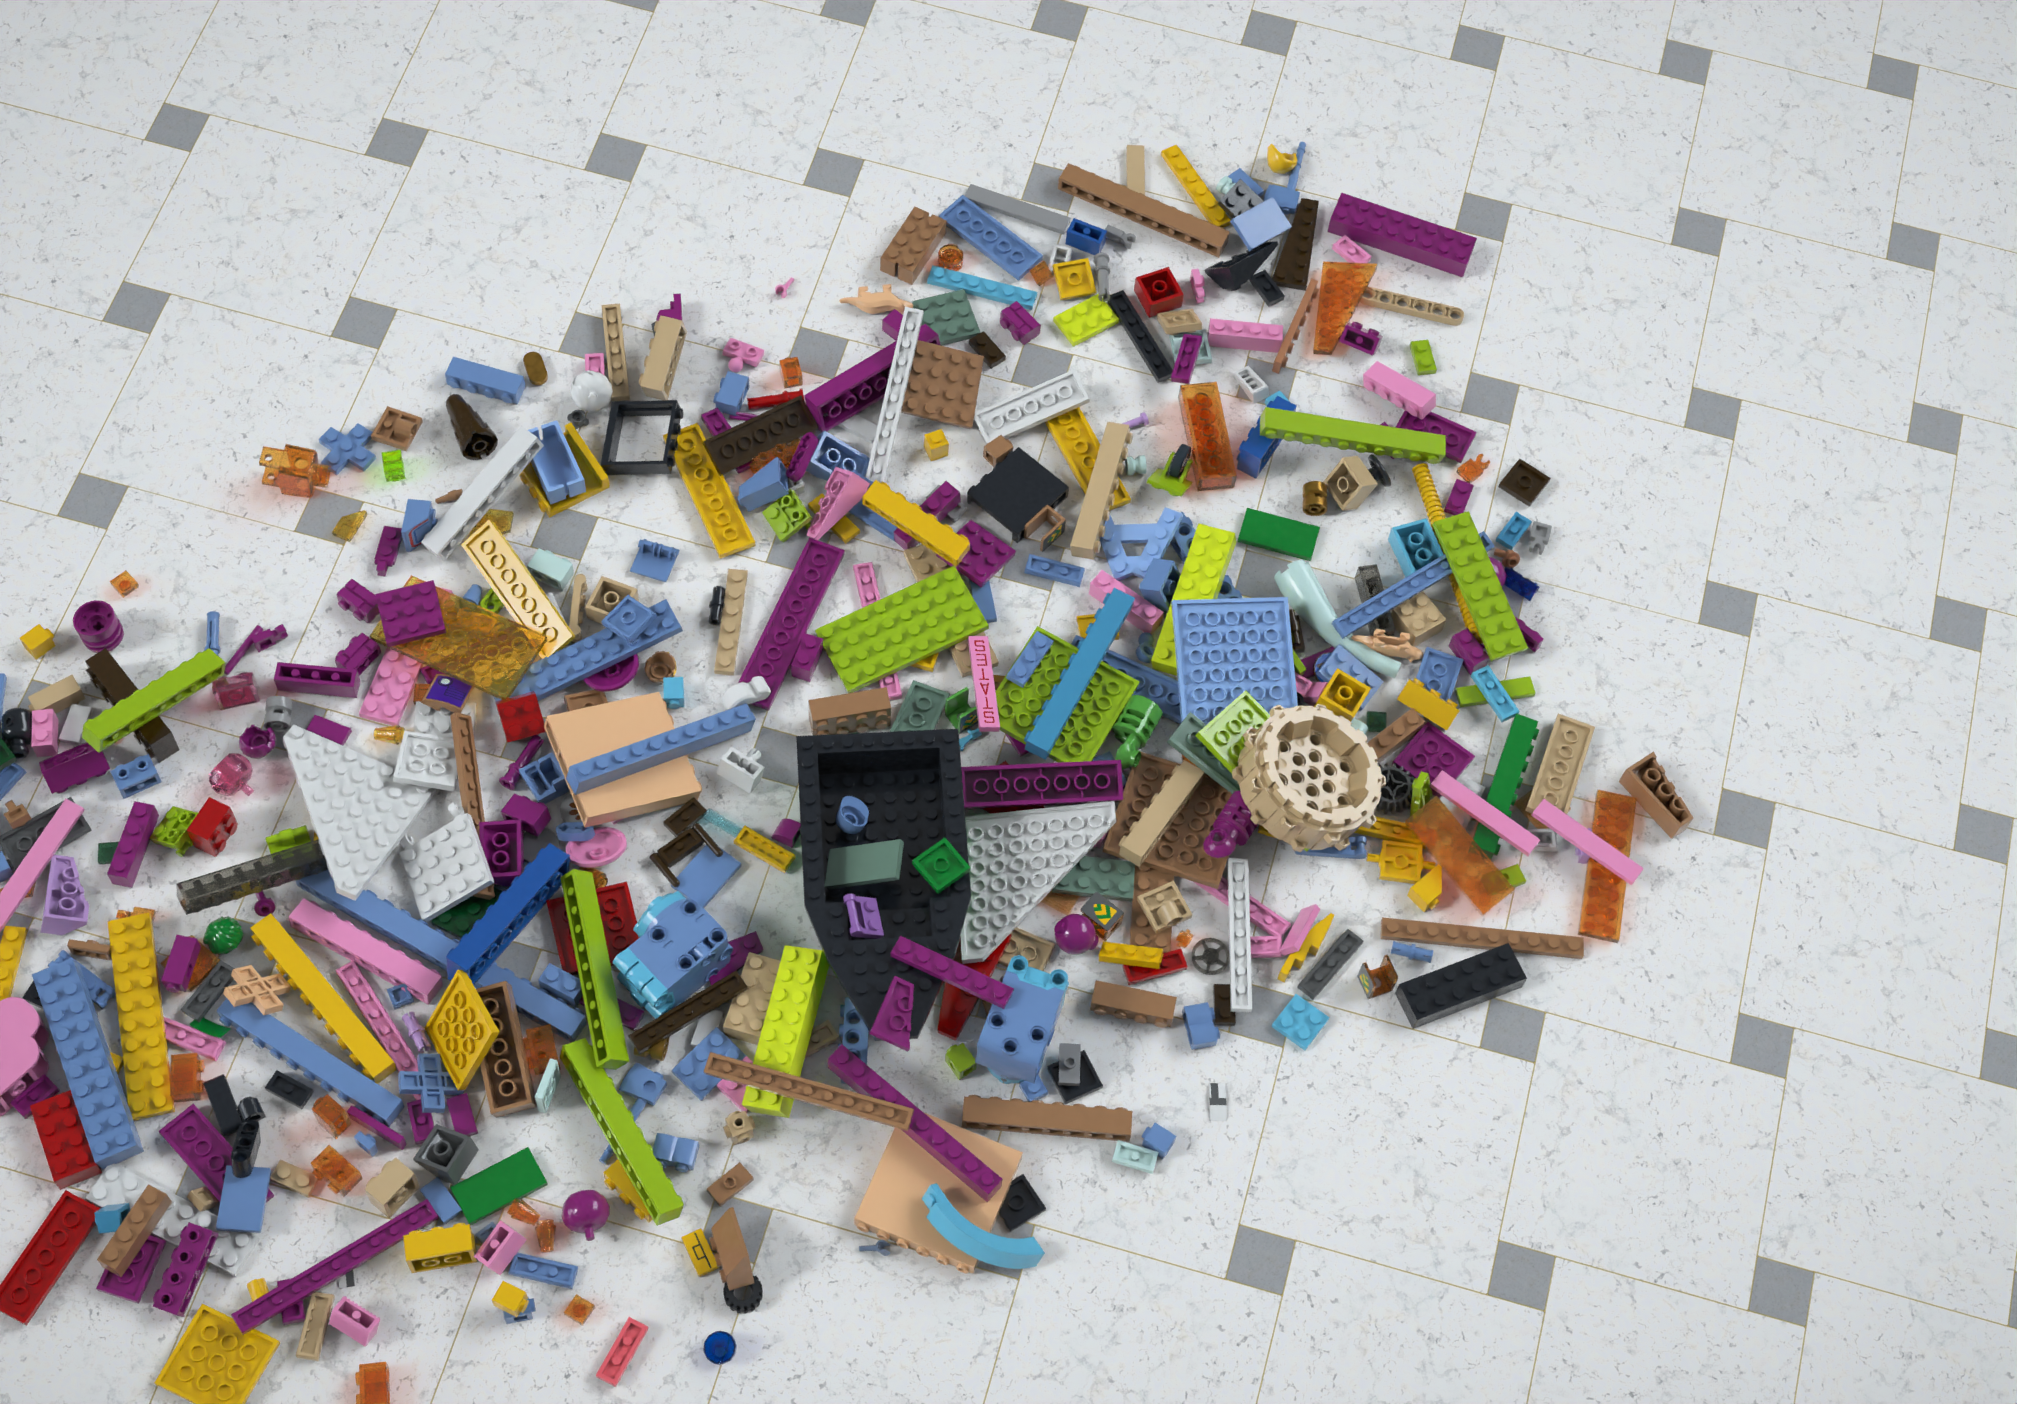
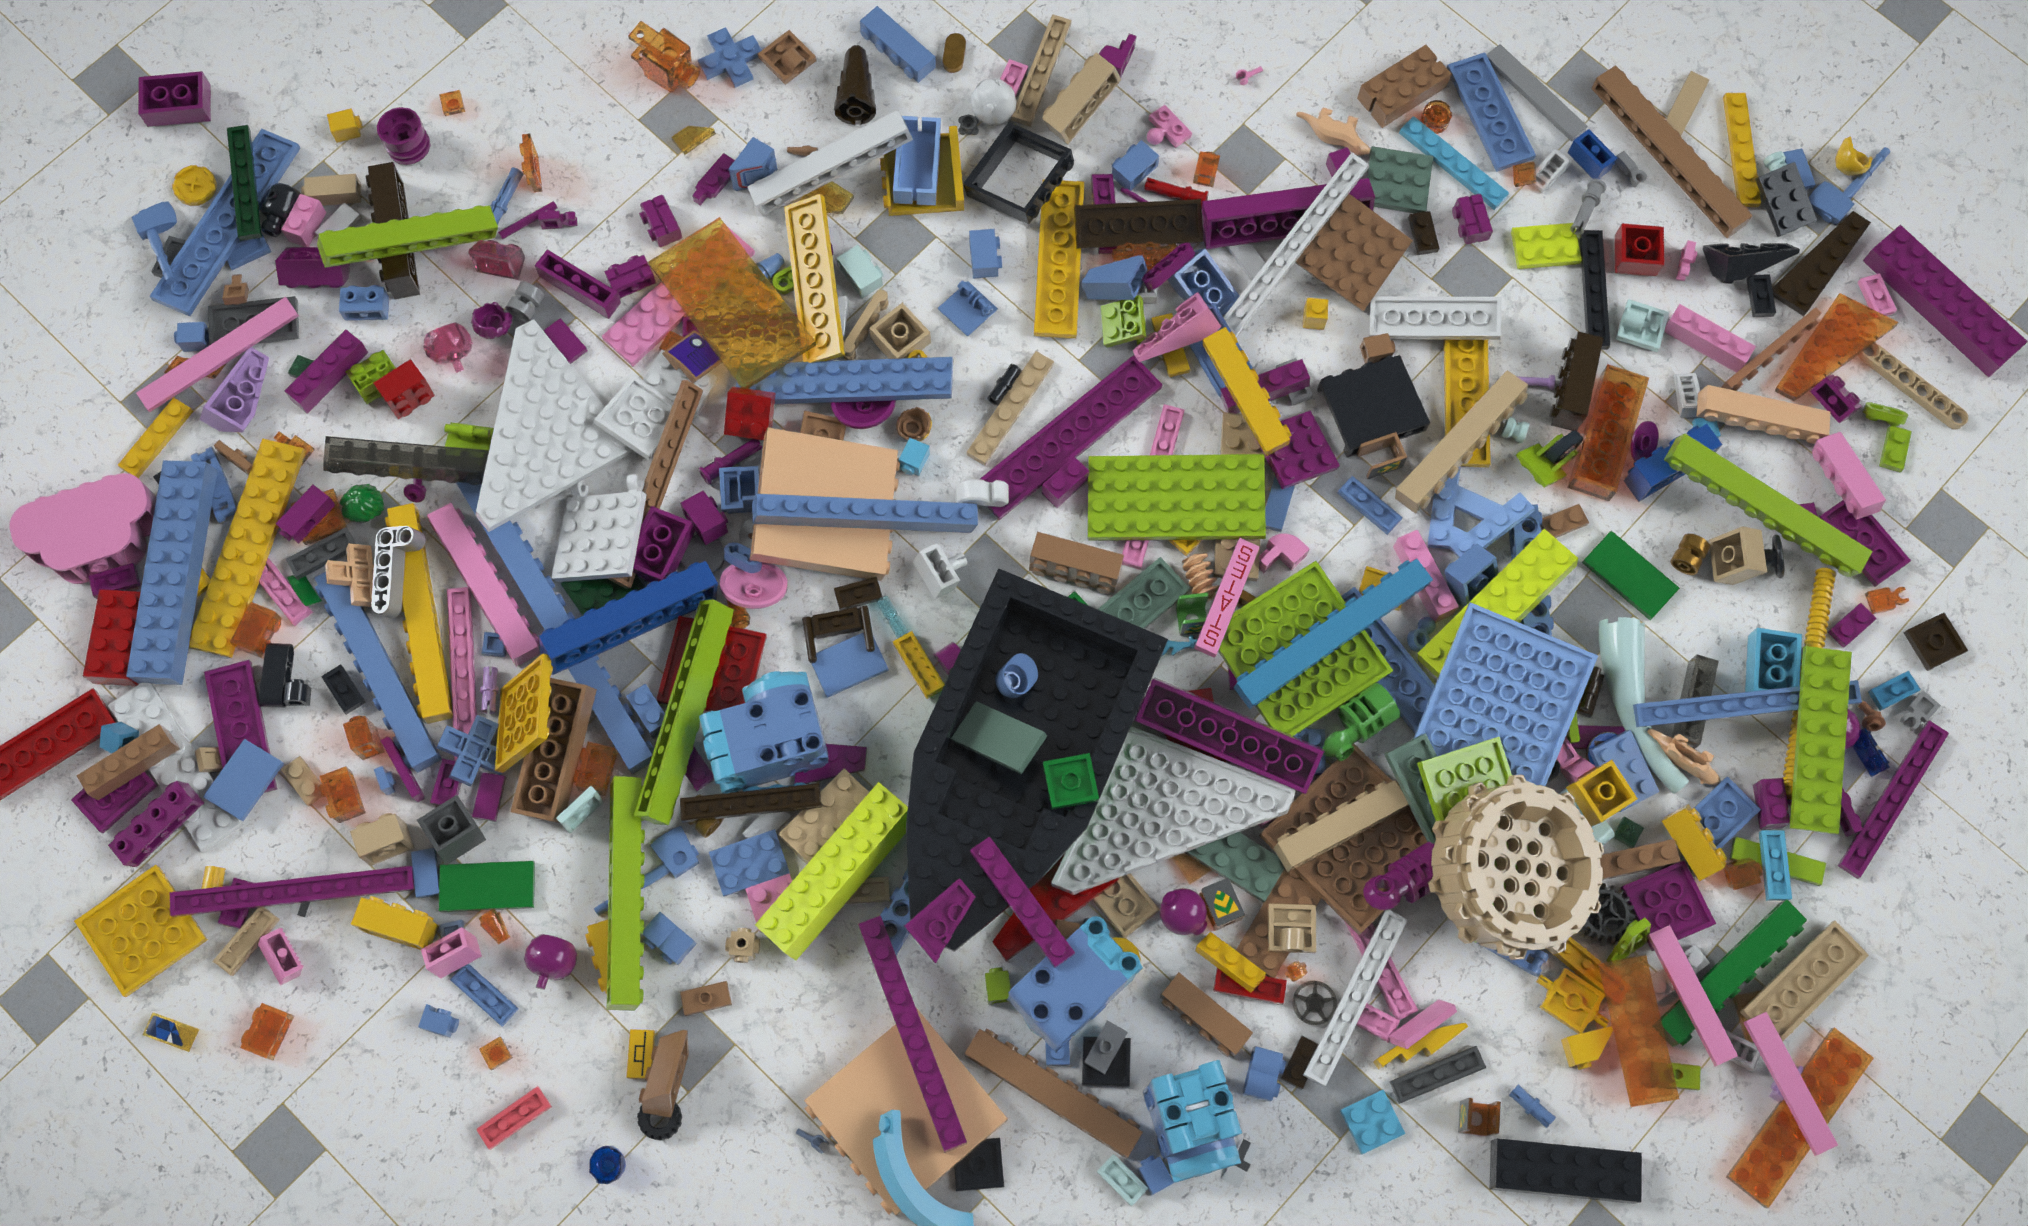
camera: 30 degrees right, 10 degrees up
(223, 600) = (531, 163): none -> clear orange plate
(245, 1148) = (269, 731): black beam -> none
(285, 972) = (389, 567): none -> light grey beam
(389, 734) = (619, 371): clear yellow cone -> none
(393, 465) = (763, 94): clear neon green brick -> none
(410, 613) = (697, 257): magenta plate -> none
(510, 1299) = (430, 1013): yellow brick -> none
(545, 1234) = (503, 960): clear orange cone -> none
(629, 619) = (903, 361): medium blue plate -> none
(645, 512) = (984, 253): none -> medium blue brick
(809, 1091) = (820, 951): medium nougat plate -> none
(867, 914) = (971, 797): medium lavender plate -> none
(951, 680) = (1200, 575): none -> light nougat piece
(1007, 630) = (1283, 547): none -> bright pink brick
(1029, 659) = (1288, 593): medium blue plate -> none
(1074, 279) = (1556, 195): yellow plate -> none
(1163, 408) = (1576, 381): none -> dark brown brick
(1167, 1076) = (1194, 1121): none -> medium azure piece
(1179, 321) = (1645, 292): tan plate -> none
(1186, 359) = (1629, 338): magenta plate -> none
(1210, 515) = (1565, 521): none -> medium nougat plate
(1236, 430) = (1644, 440): none -> magenta dish
(1261, 224) = (1791, 221): tile -> none
(1313, 372) = (1763, 414): none -> light nougat brick
(1407, 334) = (1889, 414): none -> lime plate
(1418, 618) = (1733, 741): tan brick -> none
(1474, 710) = (1742, 873): none -> clear orange brick
(1481, 937) = (1618, 1128): medium nougat plate -> none
(1553, 609) = (1893, 799): none -> magenta plate
(1657, 795) = (1898, 1067): medium nougat wedge -> none

